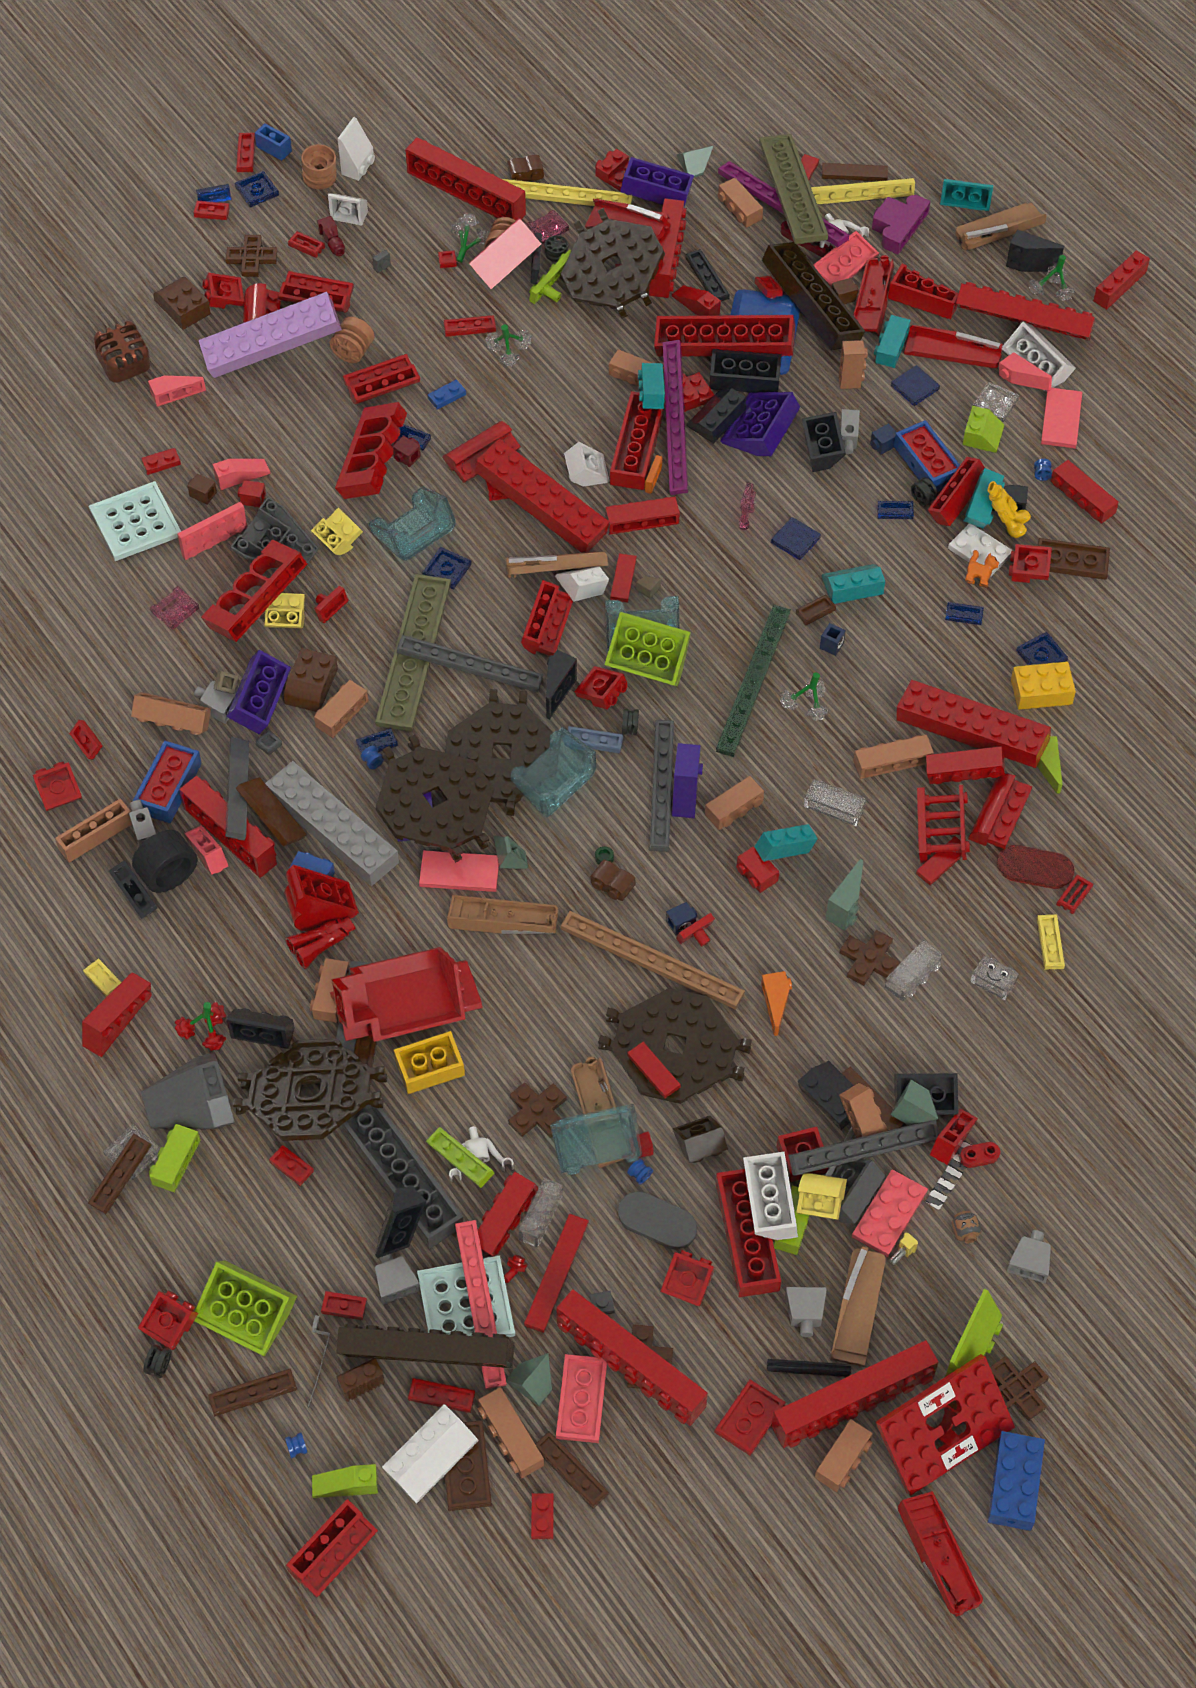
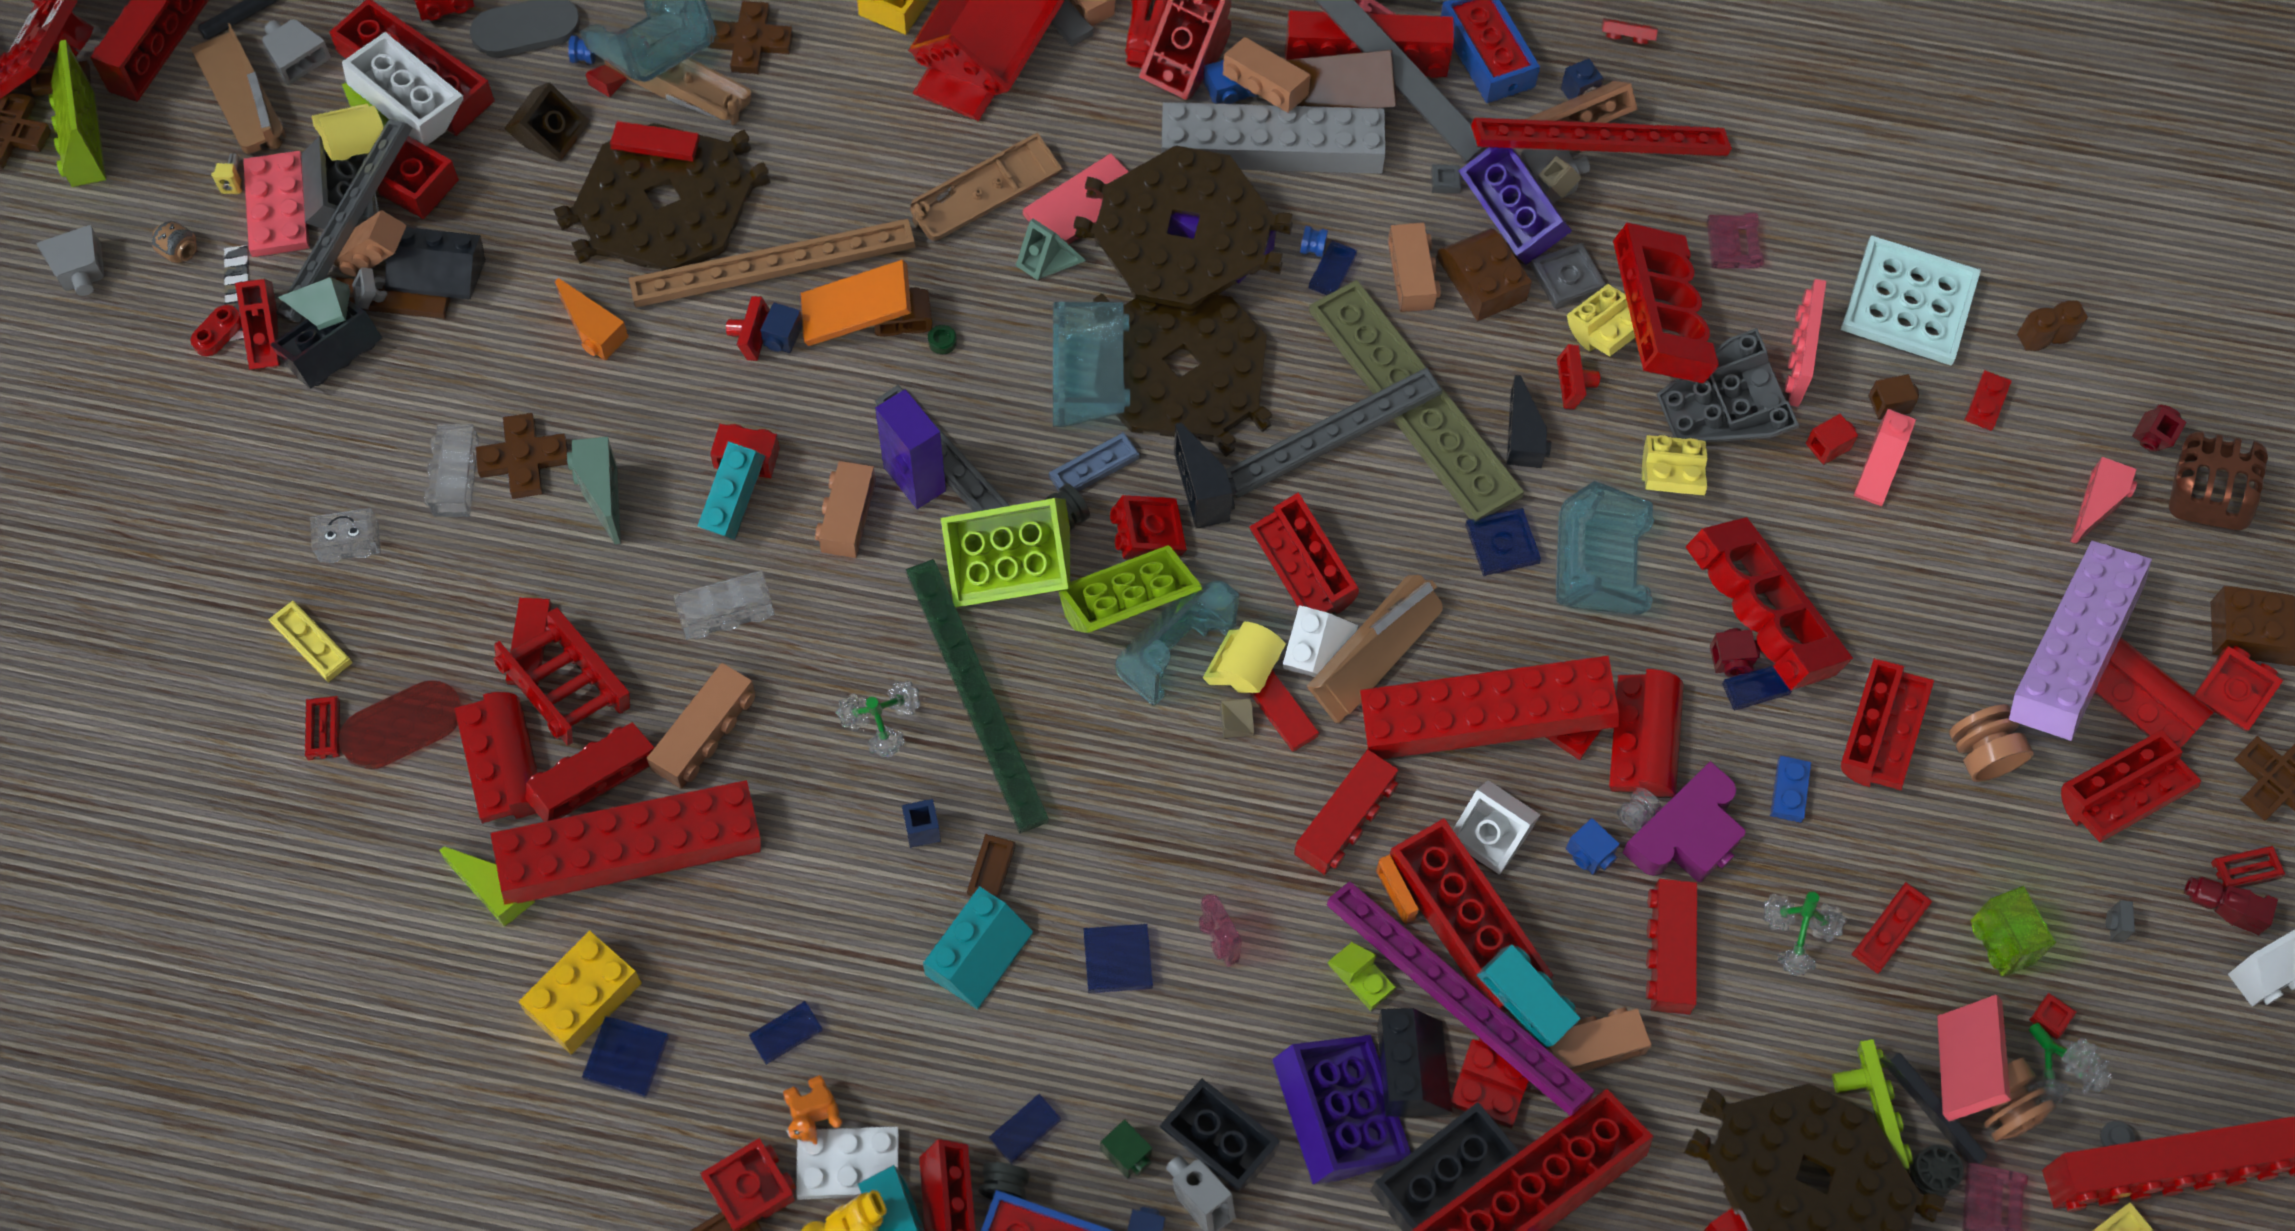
camera: 135 degrees right, 5 degrees up
(93, 461) = (2052, 325): none -> reddish brown brick
(113, 389) = (2159, 428): none -> dark red brick
(146, 729) = (1580, 79): none -> dark blue brick
(185, 680) = (1600, 137): none -> red plate
(273, 646) = (1567, 275): none -> flat silver tile
(307, 837) = (1266, 74): none -> nougat brick
(382, 598) = (1526, 429): none -> black slope
(431, 282) = (2012, 931): none -> clear neon green brick
(477, 210) = (2116, 1133): none -> dark grey plate
(507, 405) = (1690, 829): none -> magenta brick
(524, 428) = (1639, 809): none -> clear wheel
(556, 430) = (1592, 847): none -> blue brick
(565, 377) = (1673, 946): none -> red brick
(625, 591) = (1245, 658): none -> light yellow brick
(635, 891) = (855, 303): none -> orange tile
(679, 715) = (1008, 552): none -> lime slope
(701, 461) = (1361, 975): none -> lime slope
(862, 470) = (1127, 1150): none -> dark green brick
(884, 1102) = (365, 288): none -> light grey tile

